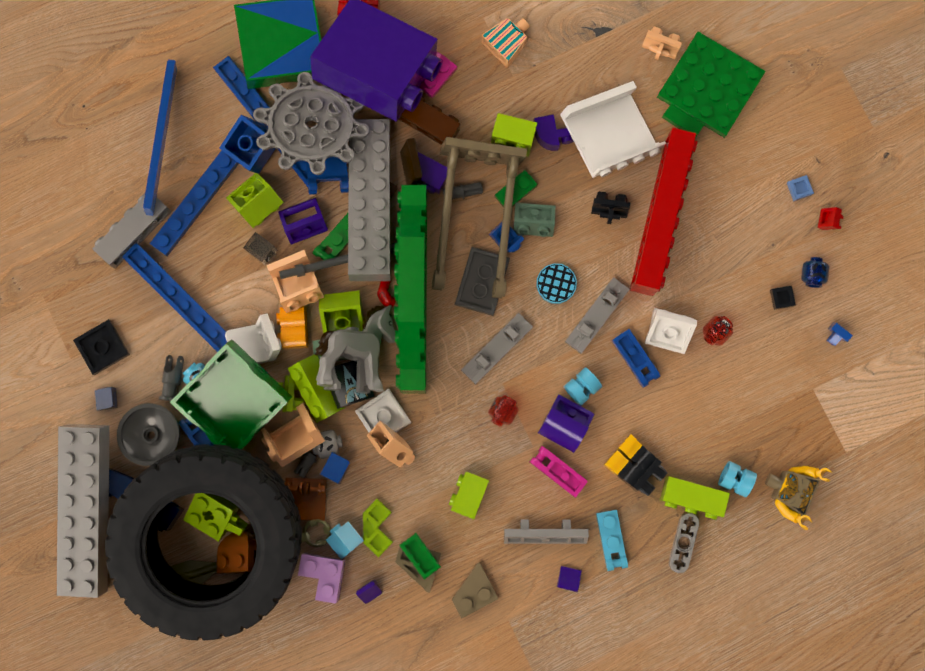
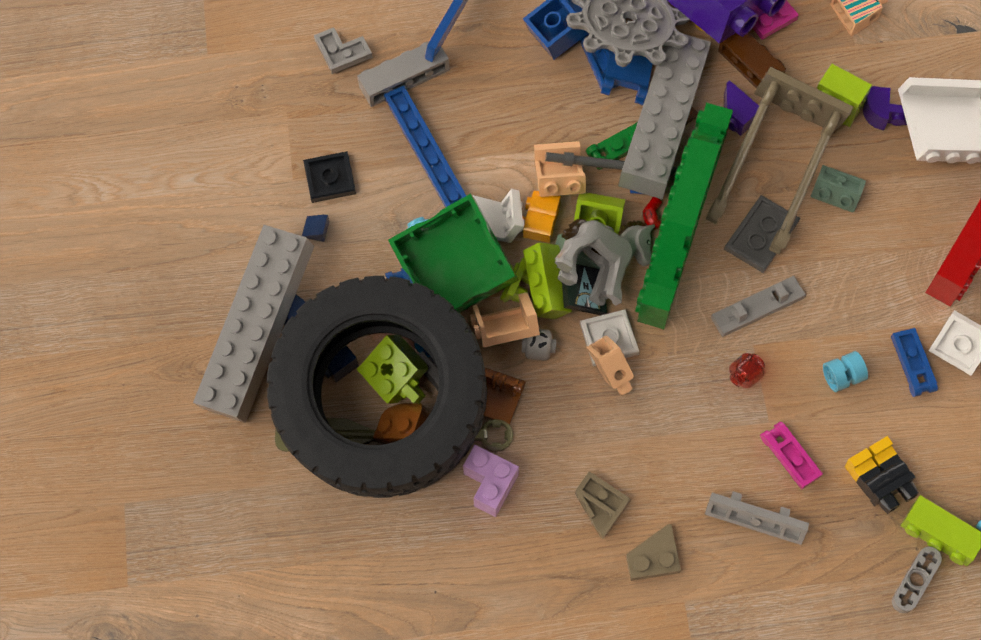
camera: 20 degrees right, 15 degrees down
(70, 230) = (339, 55): none -> light grey plate
(135, 430) = (347, 260): dark grey dish -> none
(171, 378) = (392, 227): dark grey piece -> none
(194, 203) = (477, 68): blue plate -> none
(255, 200) = (542, 82): lime slope -> none
(260, 249) = (531, 129): clear smoke brick -> none
(305, 227) = (586, 123): dark purple tile -> none
(305, 464) = (508, 358): dark grey pin -> none
(335, 468) = (539, 371): blue panel -> none
(344, 539) = (526, 448): medium azure brick -> none
(369, 592) = (534, 515): dark purple slope -> none
(372, 535) = (564, 440): lime tile -> none
(411, 162) = (722, 86): dark brown tile -> none
(420, 556) = (606, 490): green plate -> none
(466, 190) = (770, 138): dark grey axle -> none
(469, 494) = (681, 446): lime brick -> none
(514, 240) = (809, 201): blue bracket -> none
(523, 186) = (835, 152): green plate -> none
(556, 283) = (844, 260): tile -> none
(566, 423) = (814, 405): dark purple brick -> none
(569, 579) = (769, 577): dark purple slope -> none
(597, 315) = (881, 306): light grey hinge -> none
(610, 208) = (927, 200): black hips -> none
(611, 539) = (832, 549): medium azure plate -> none

